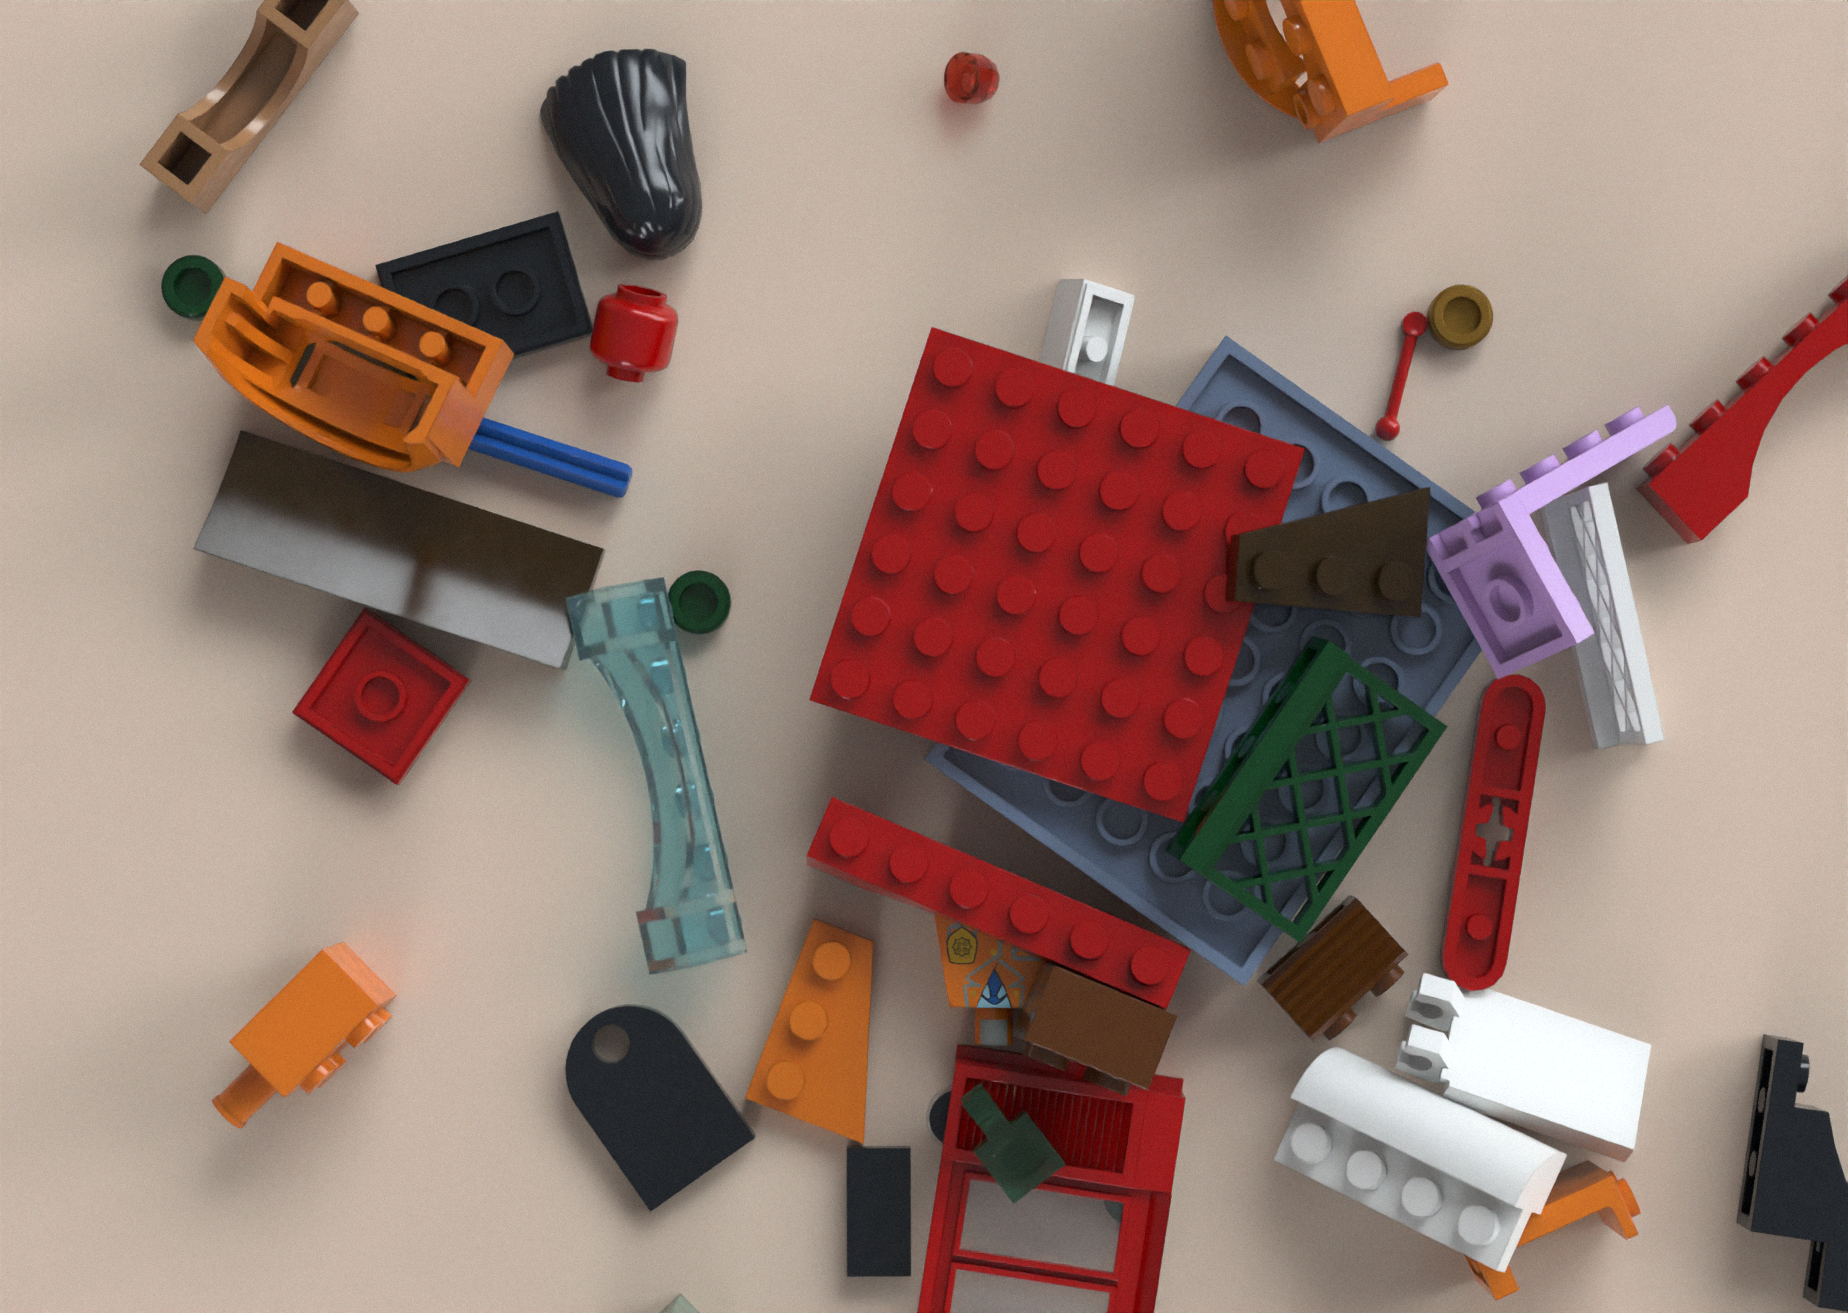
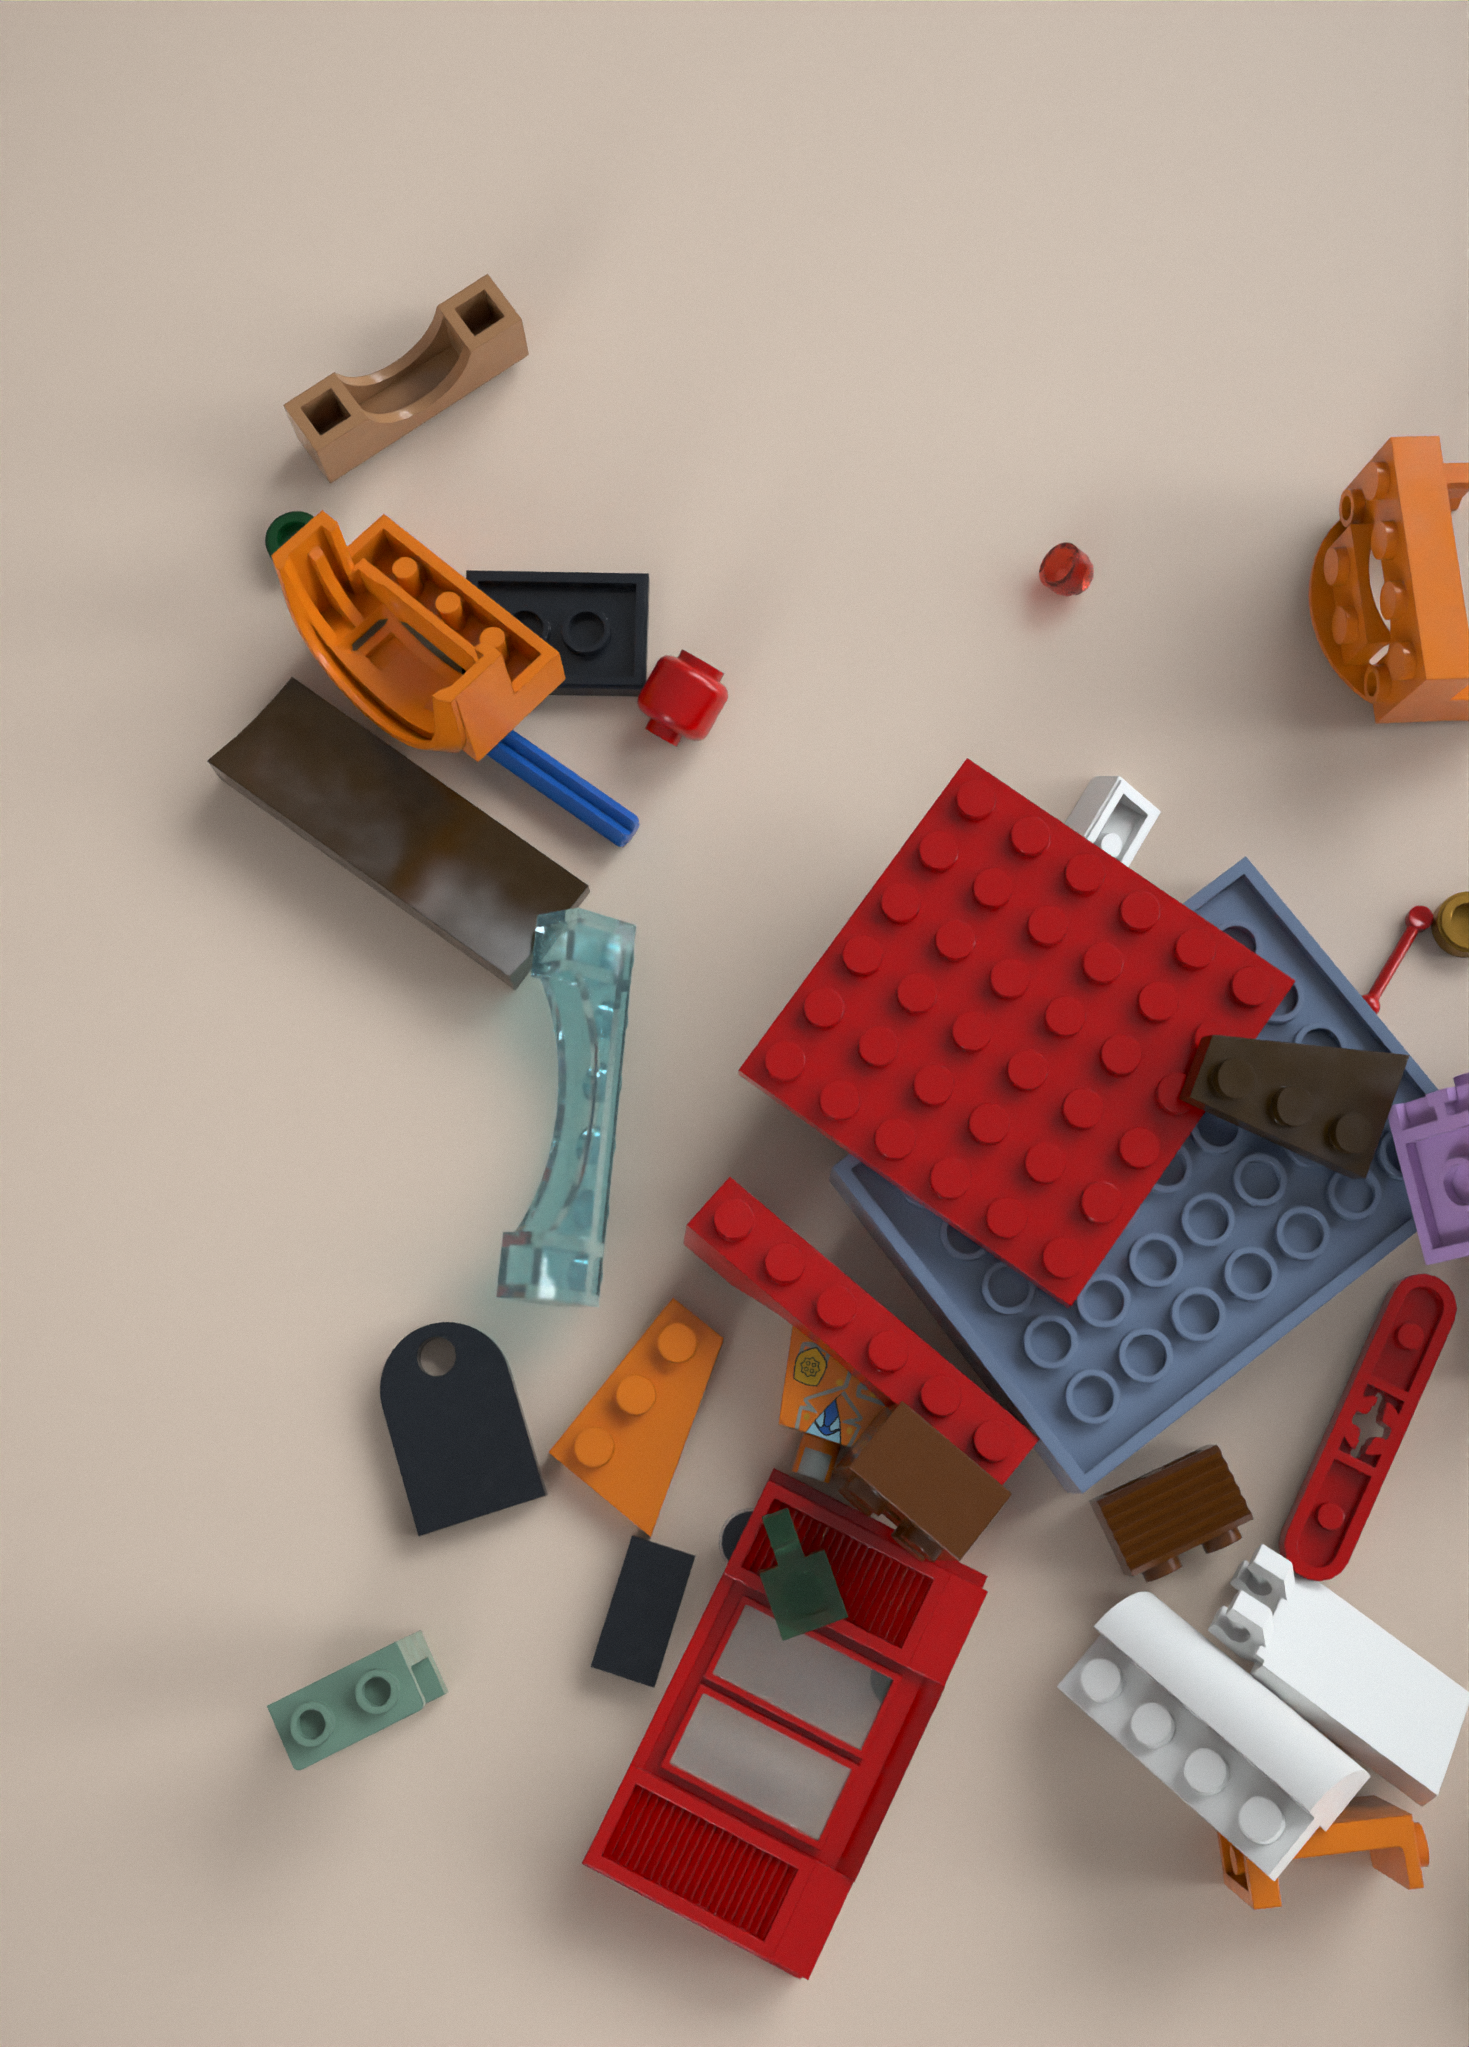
camera: 20 degrees right, 10 degrees down
(304, 1029) = (146, 1242): orange brick -> none
(382, 696) = (334, 957): red plate -> none
(630, 147) = (733, 539): black hair -> none
(699, 602) = (662, 965): dark green tile -> none
(1260, 757) = (1165, 1267): dark green fence -> none

